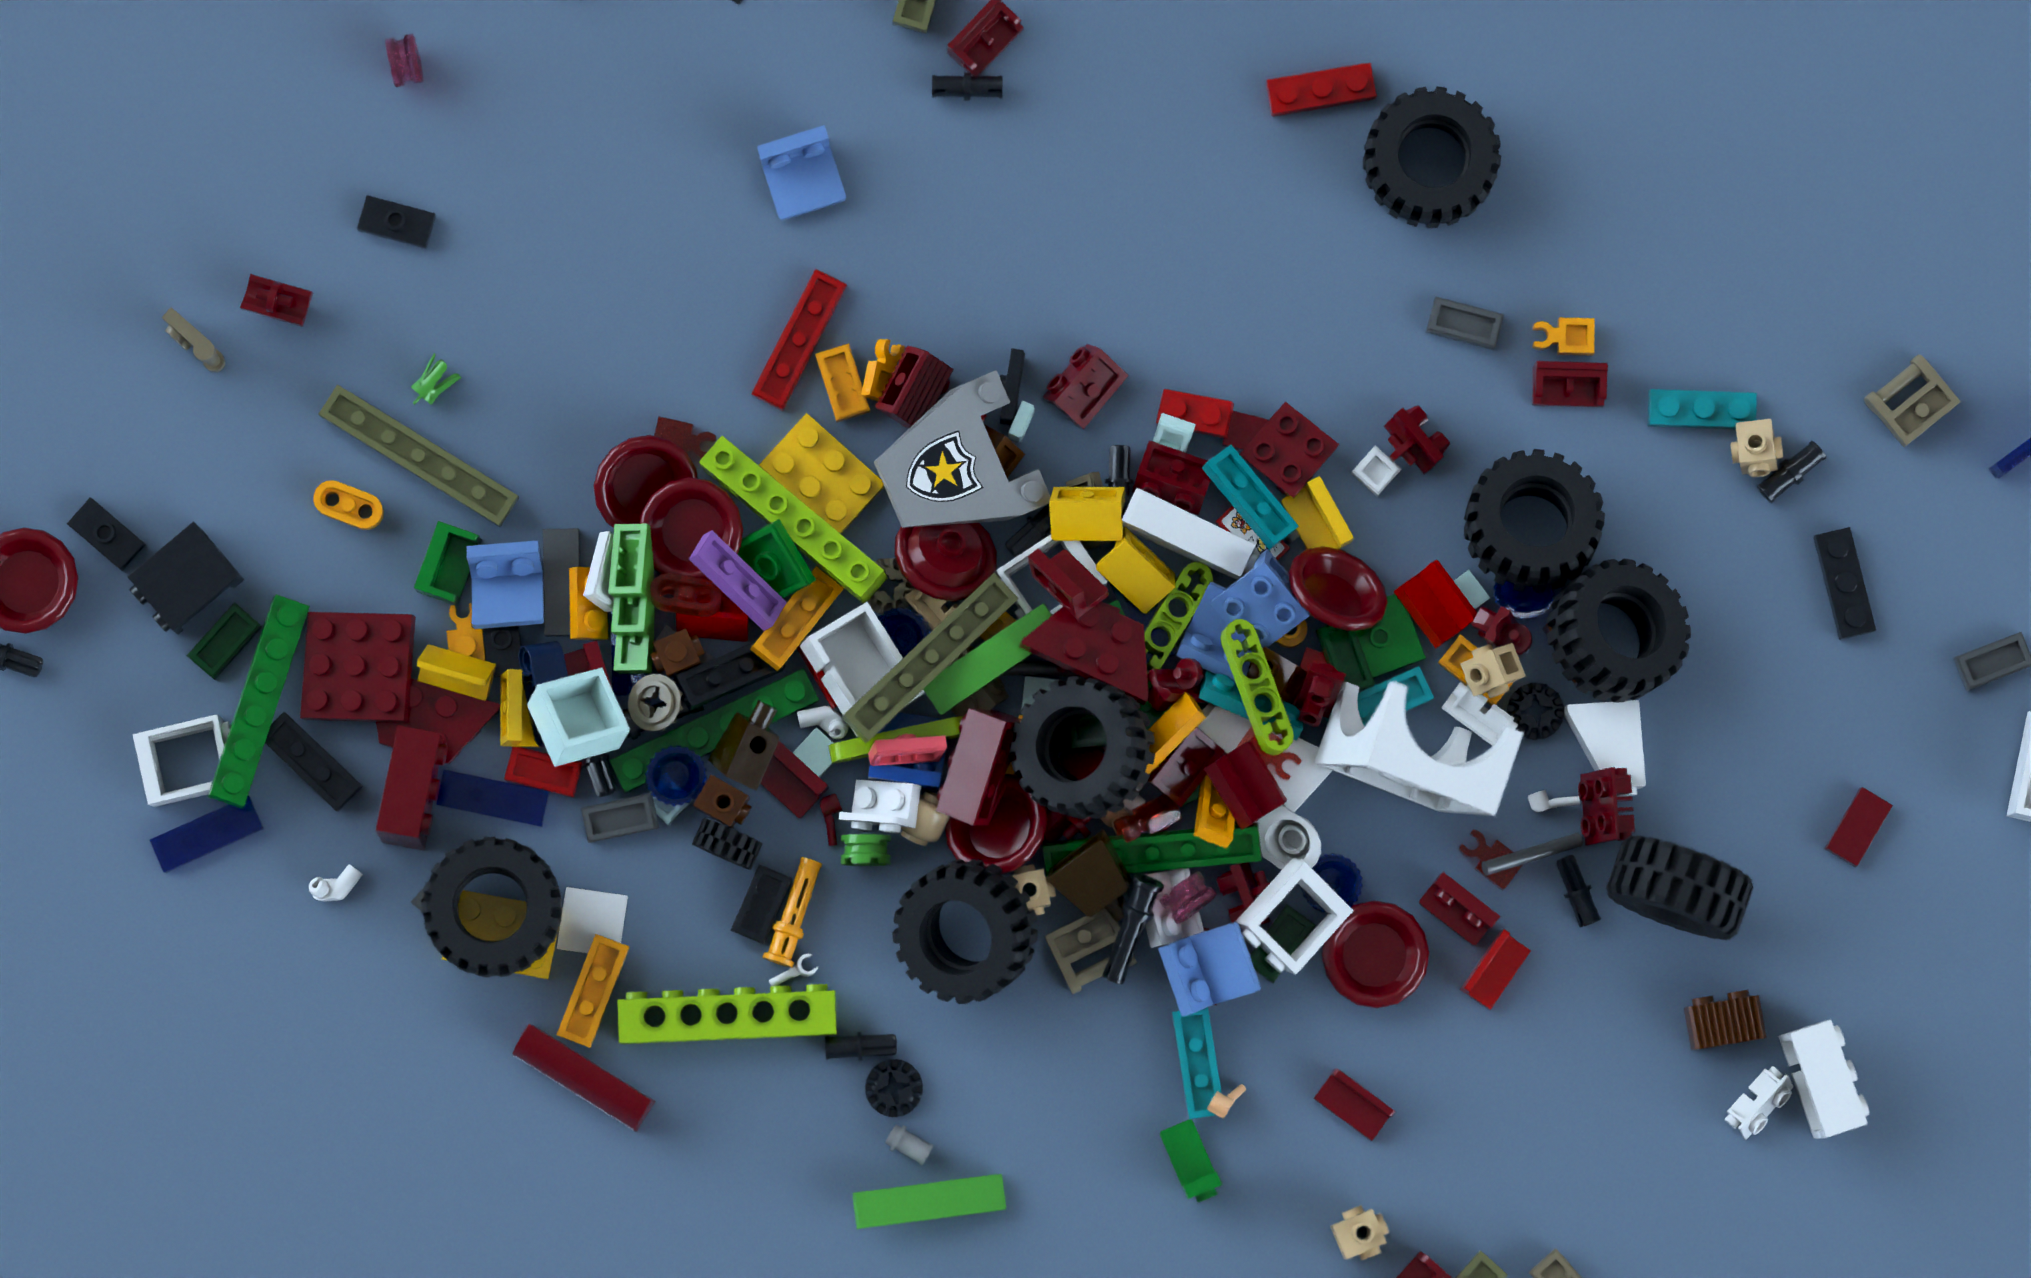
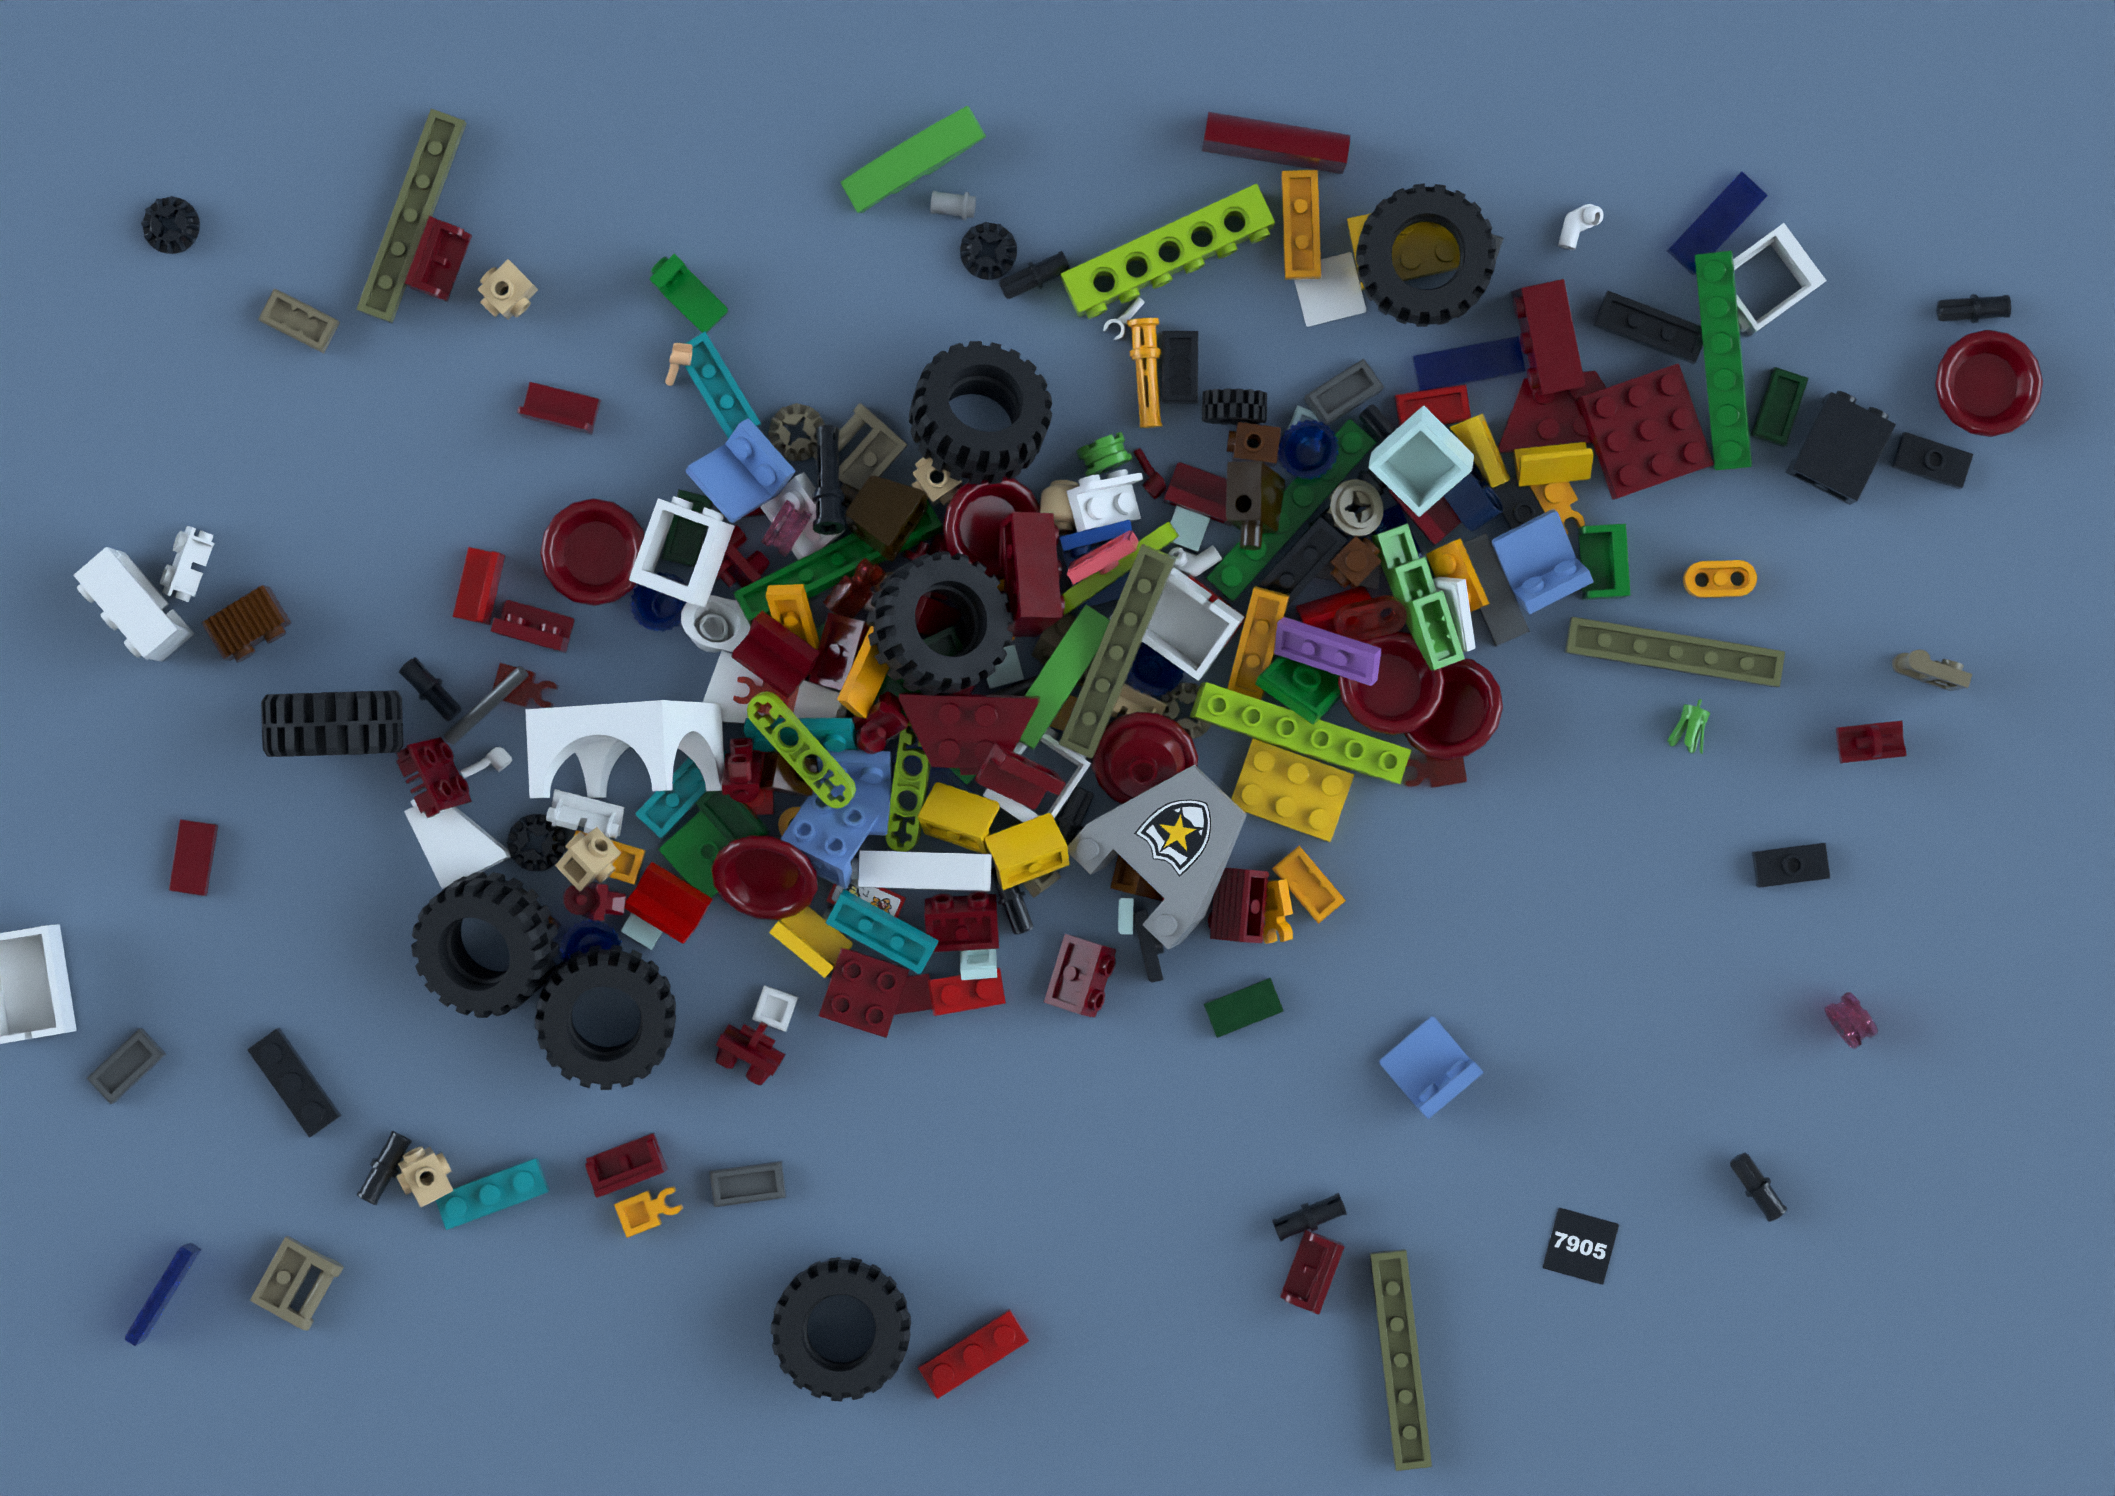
camera: 165 degrees right, 5 degrees up
(799, 340) = (1366, 909): red tile -> none
(948, 297) = (1243, 1007): none -> dark green tile
(1140, 1008) = (780, 437): none -> dark tan gear

